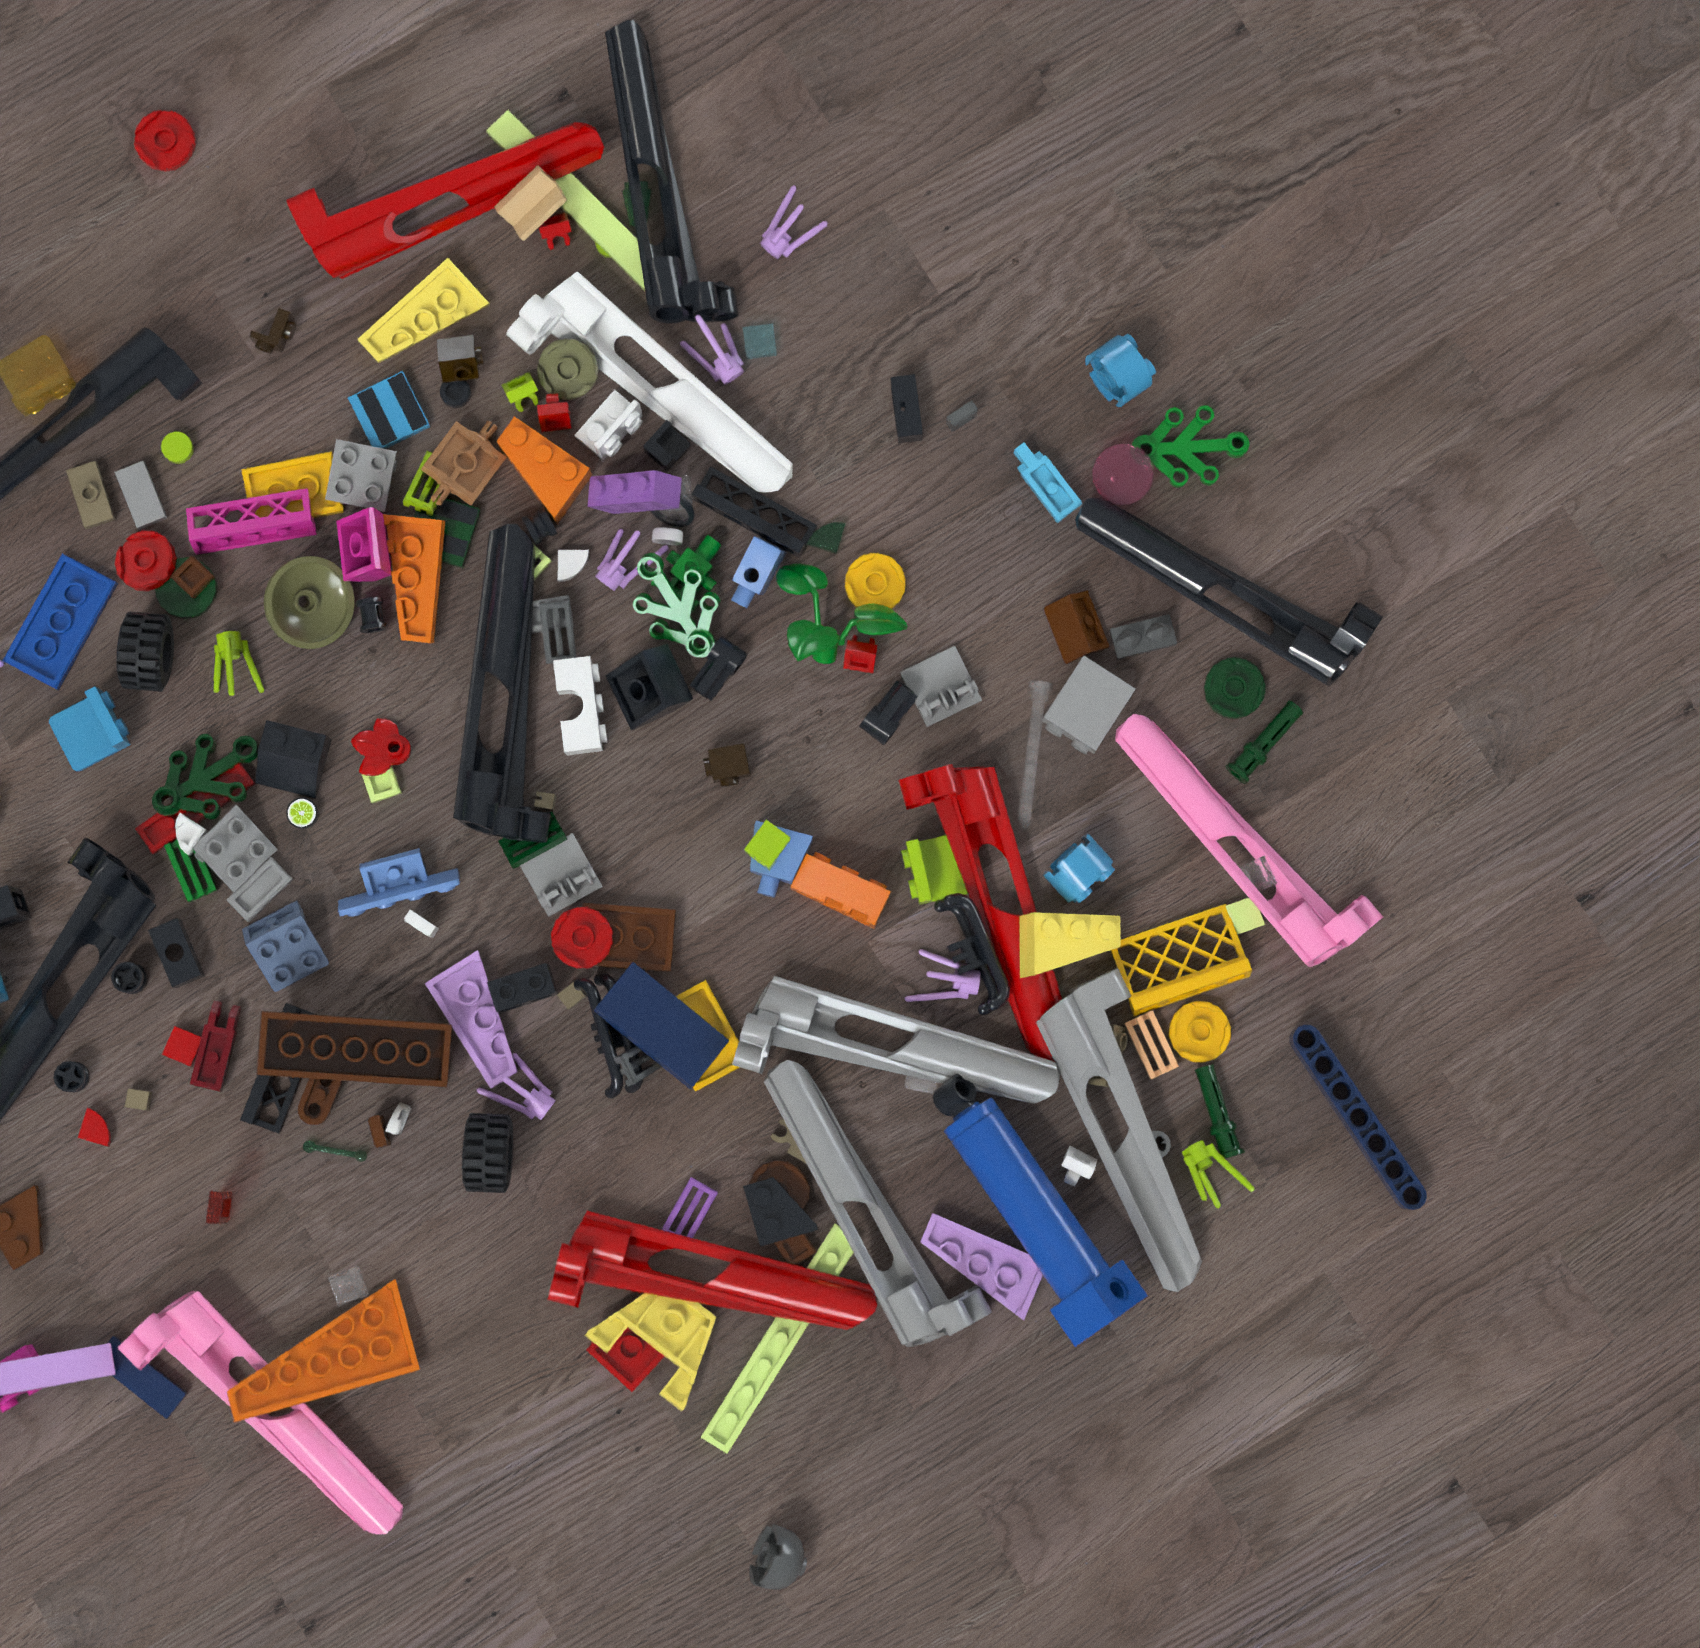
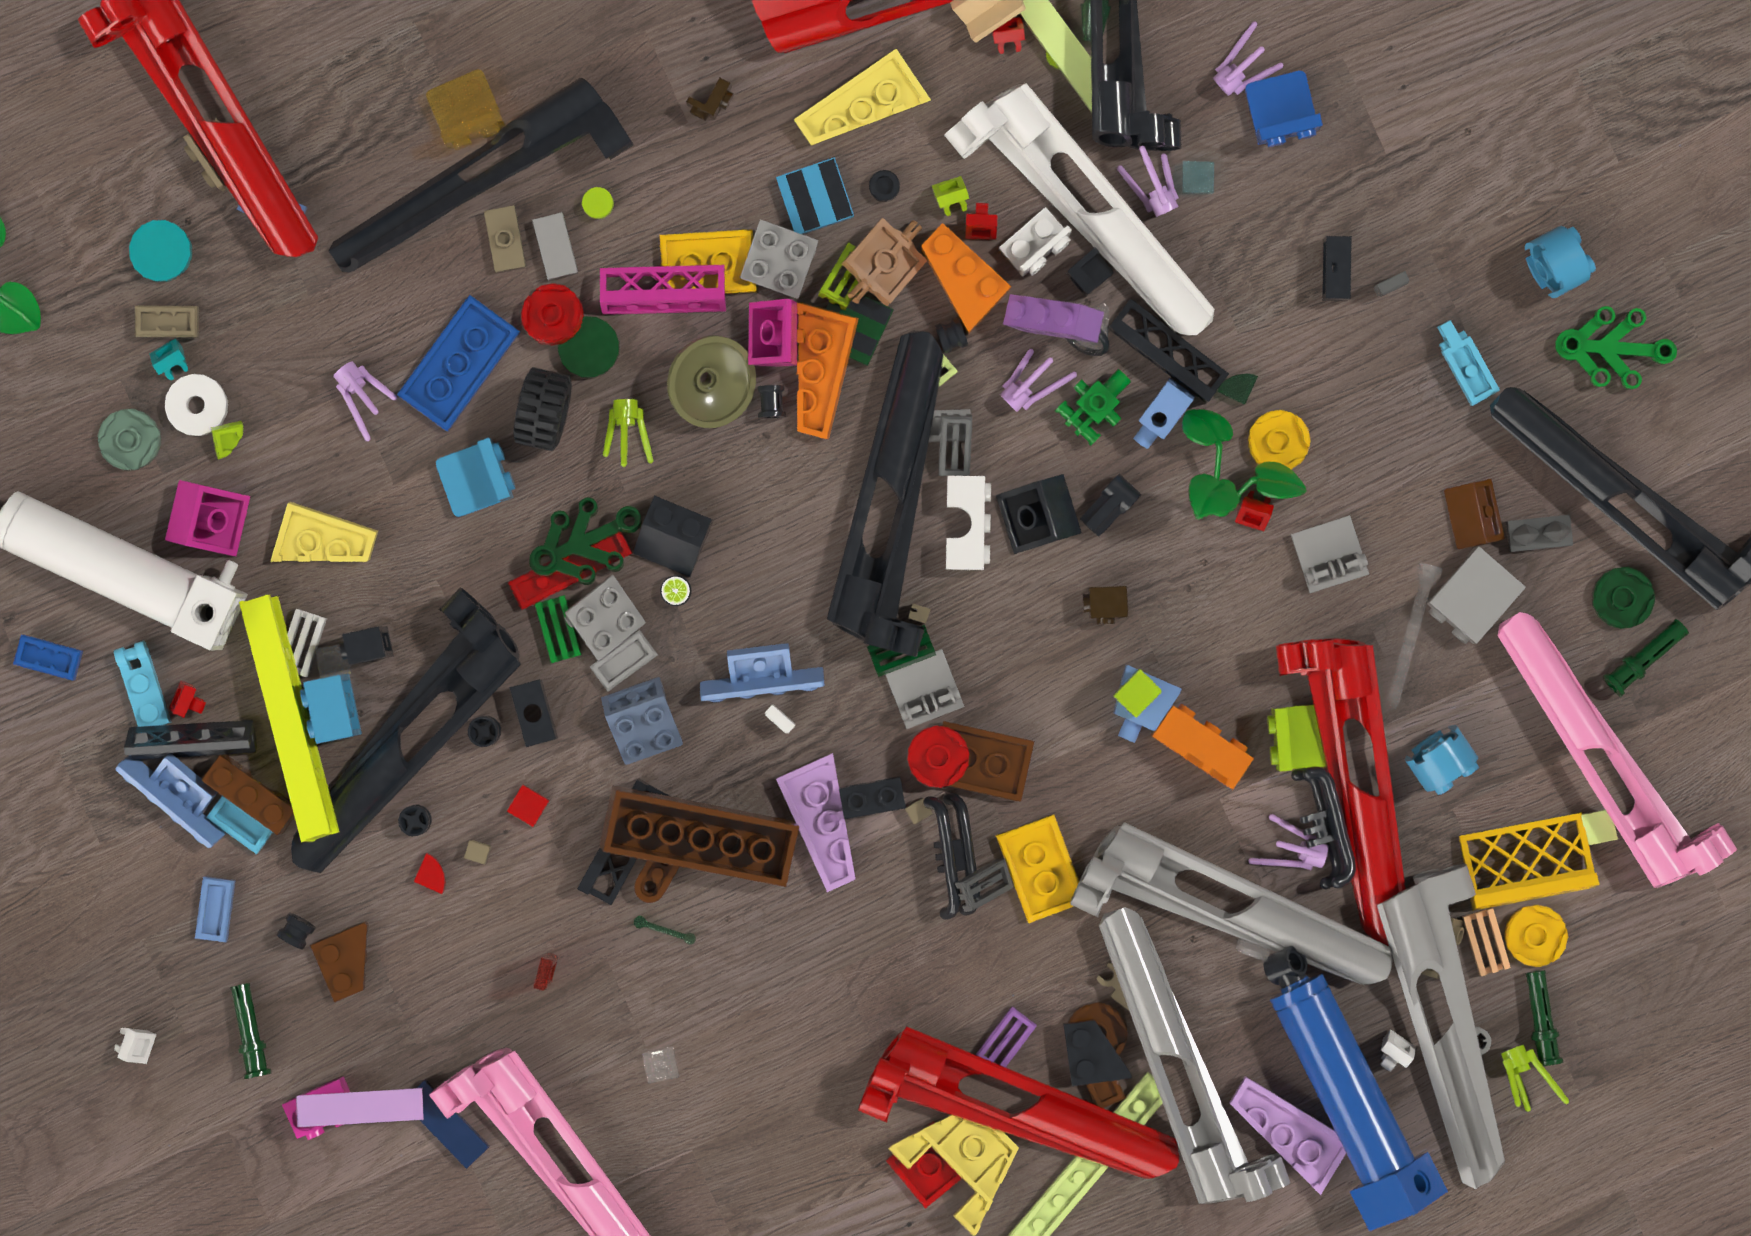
camera: 10 degrees right, 5 degrees up
(188, 833) = (560, 596): white tile -> none
(192, 577) = (597, 338): reddish brown tile -> none
(215, 1049) = (559, 814): dark red hinge -> none
(348, 1353) = (653, 1132): orange wing -> none
(376, 748) = (758, 535): red plate -> none
(378, 1131) = (711, 918): reddish brown tile -> none
(382, 786) = (758, 571): yellowish green tile -> none
(398, 1119) = (732, 908): white tile -> none
(459, 358) = (894, 154): dark brown brick -> none
(487, 1153) = (817, 957): black tyre -> none
(537, 1101) = (871, 912): lavender plant -> none
(568, 369) = (1001, 179): olive tile -> none
(571, 563) = (977, 377): white tile -> none
(661, 1025) = (1005, 855): dark blue tile -> none
(667, 536) = (1078, 364): white tile -> none
(678, 609) = (1078, 440): plant -> none
(831, 263) = (1282, 108): none -> blue bracket
(885, 718) = (1269, 579): black piece -> none
(1061, 939) = (1414, 829): light yellow wedge -> none
(1123, 474) = (1545, 366): clear pink tile -> none
(1259, 873) = (1620, 788): clear tile -> none
(1371, 1123) = (1691, 1054): dark blue beam -> none

